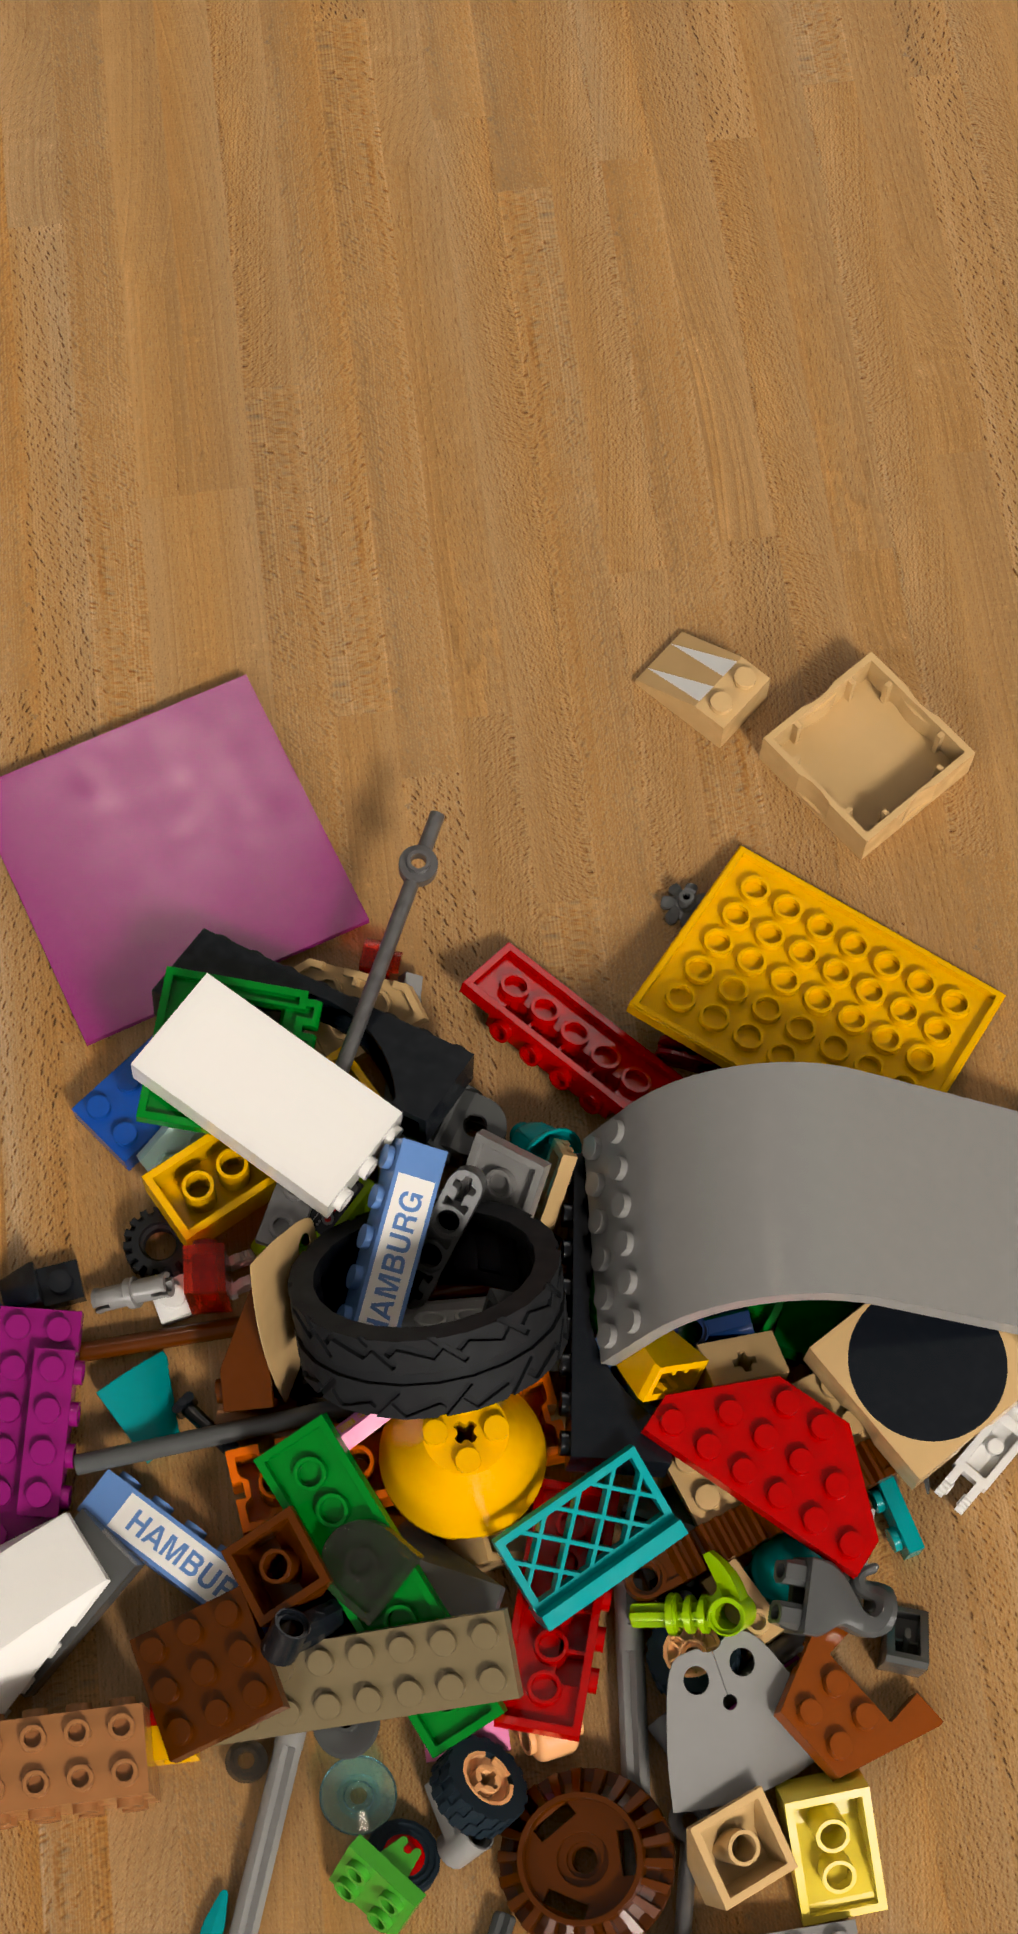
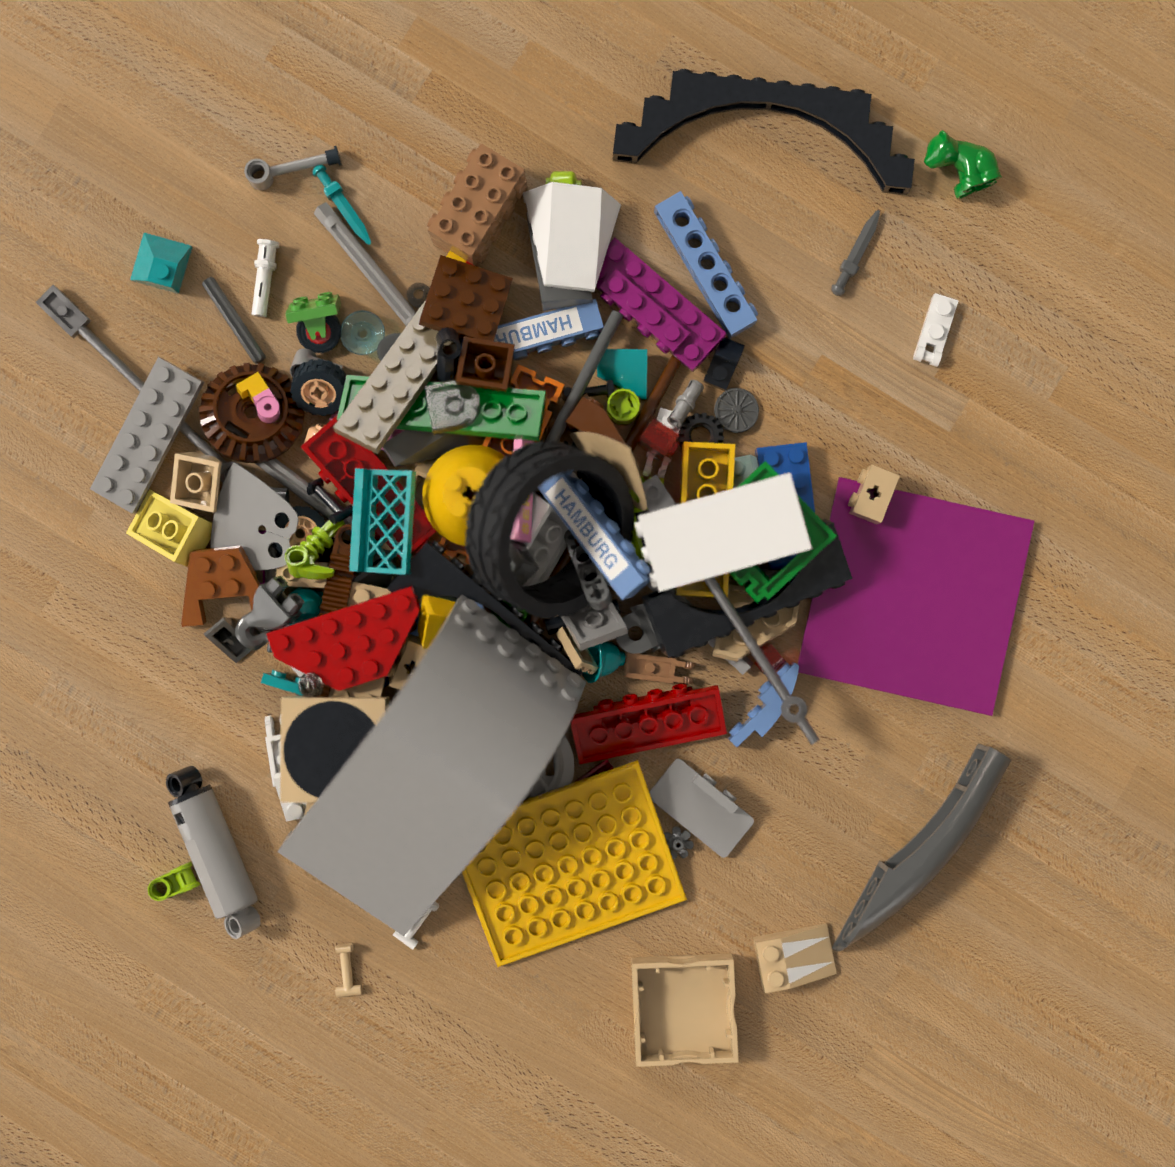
camera: 135 degrees right, 20 degrees up
(58, 980) = (884, 485): none -> tan brick
(92, 1228) = (736, 410): none -> dark grey wheel
(195, 1364) = (623, 407): none -> lime wheel
(446, 913) = (764, 717): none -> medium blue slope
(460, 629) = (927, 853): none -> dark grey slope
(499, 1080) = (655, 668): none -> medium nougat hinge
(554, 1851) = (262, 397): none -> leg
(619, 908) = (701, 807): none -> light grey bracket
(623, 1615) = (338, 512): none -> black piece
(881, 1463) = (311, 685): none -> clear smoke plate

